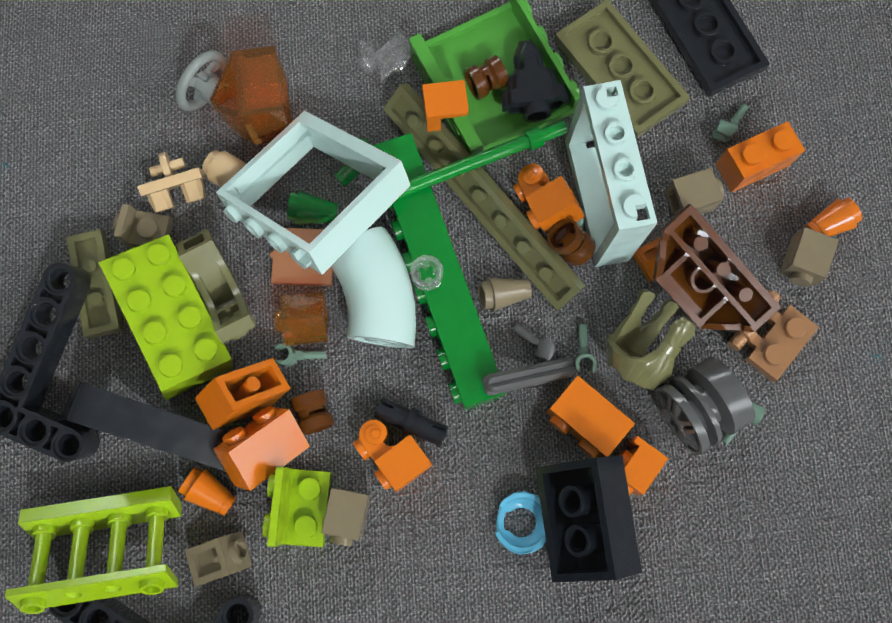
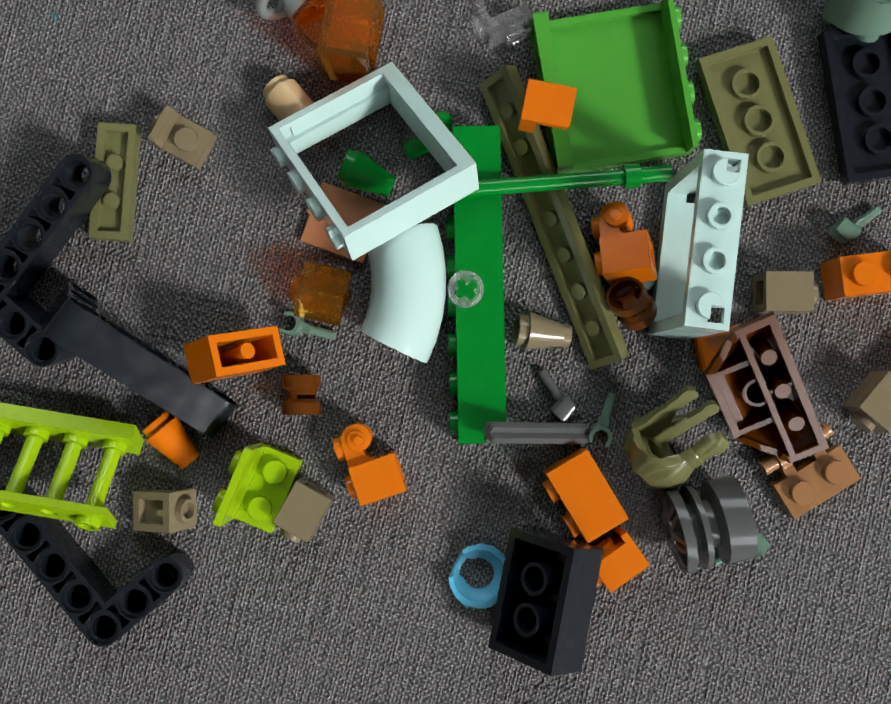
camera: 20 degrees right, 10 degrees up
(159, 190) = (209, 102): tan hips -> none
(166, 316) = (177, 244): lime brick -> none
(217, 286) = (242, 229): olive arch -> none
(257, 449) = (237, 416): orange brick -> none
(411, 422) = (399, 437): black pin -> none
(486, 77) = (604, 86): reddish brown wheel -> none
(532, 86) = (651, 112): black rock -> none

